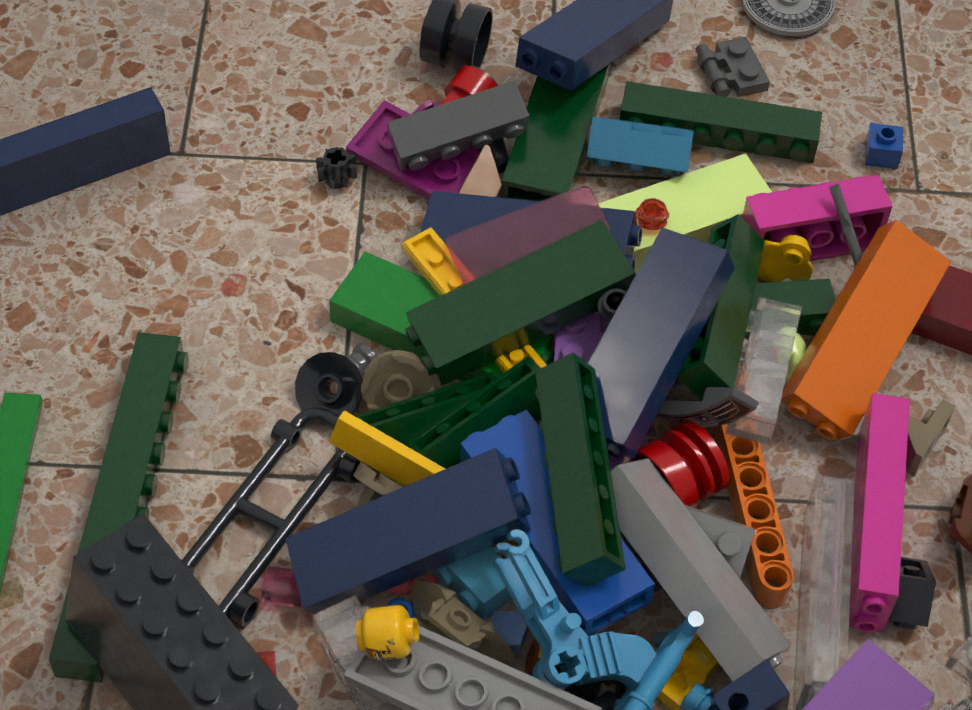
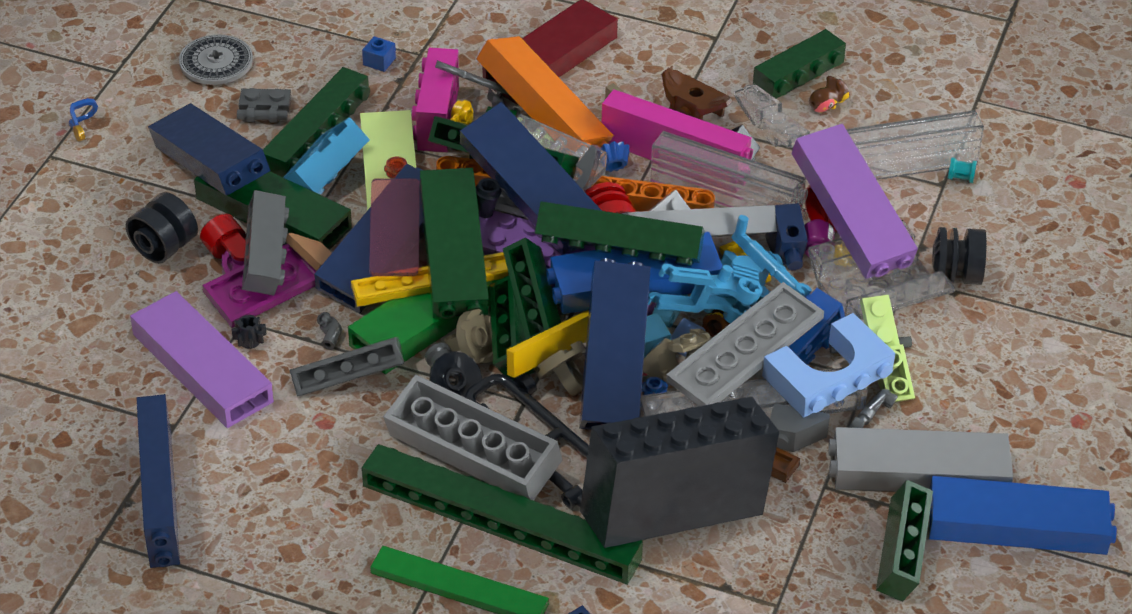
camera: 70 degrees left, 10 degrees down
(215, 432) = (473, 438): none -> light grey brick
(276, 140) = (202, 359): none -> medium lavender brick
(306, 272) = (347, 366): none -> dark grey slope
(378, 245) = (331, 329): none -> dark grey arm
(387, 633) = (693, 367): yellow head -> none
(816, 449) = (616, 155): none -> blue piece

